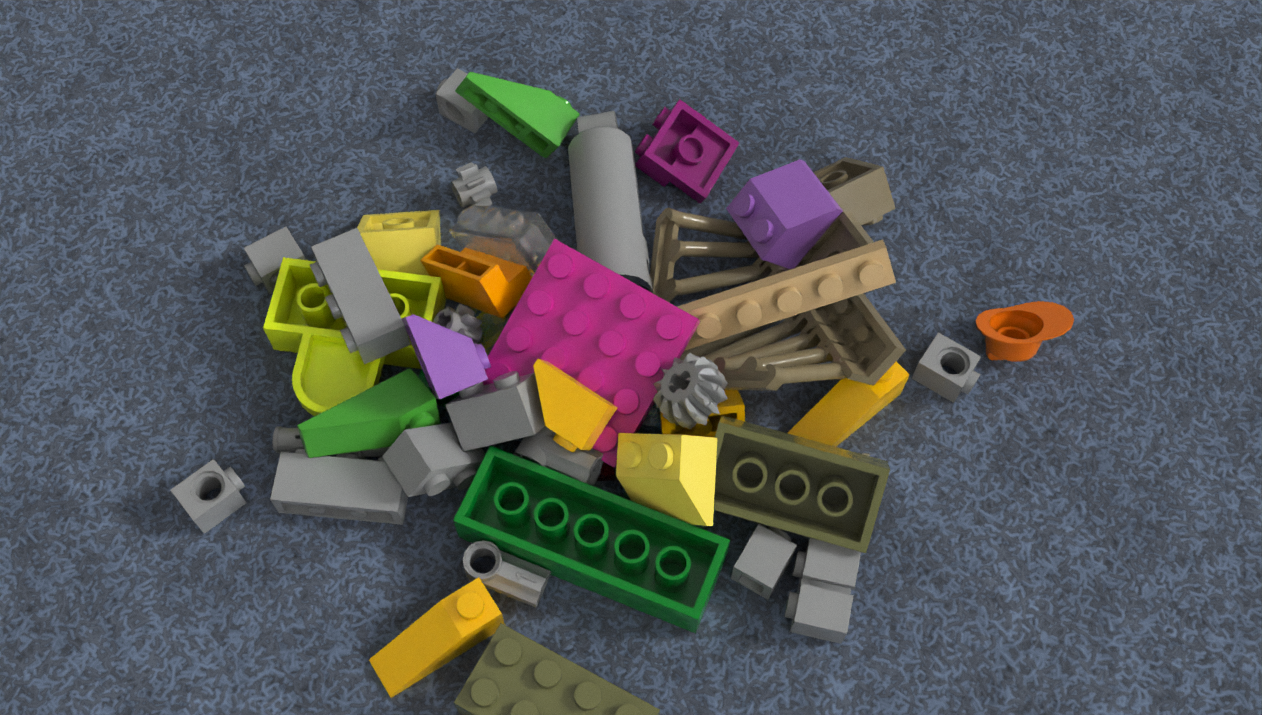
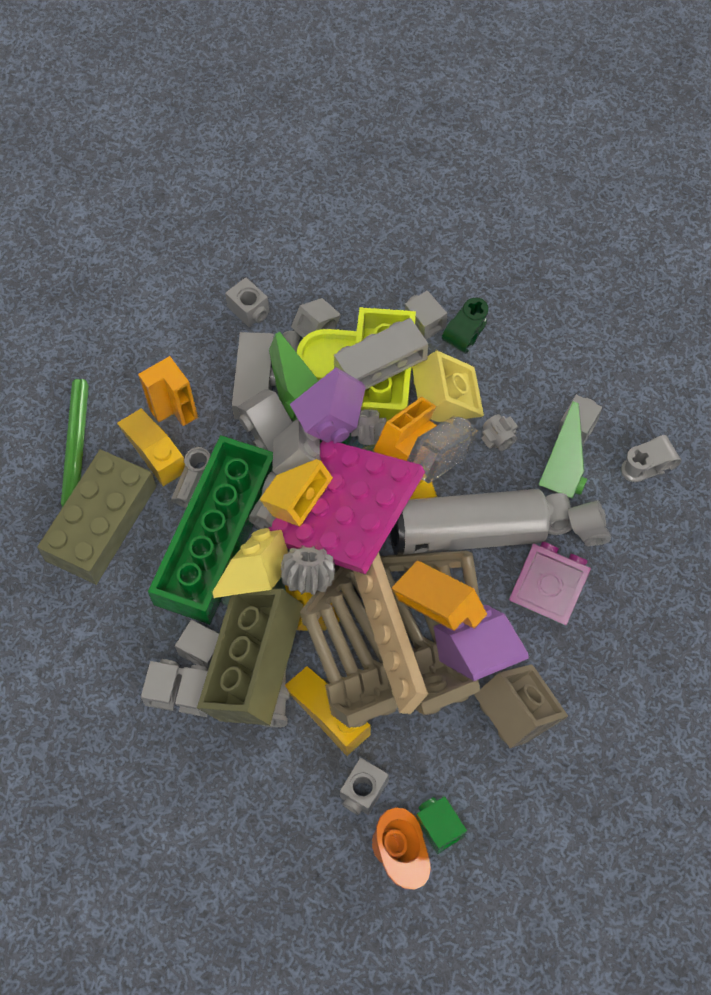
camera: 90 degrees right, 0 degrees up
(264, 398) = (315, 316): none -> light grey brick
(302, 211) = (467, 324): none -> dark green piece
(367, 590) = (168, 392): none -> light orange piece
(527, 38) = (650, 459): none -> light grey piece
(613, 93) = (590, 523): none -> light grey piece
(739, 234) = (439, 597): none -> light orange piece
(986, 287) = (440, 823): none -> green brick

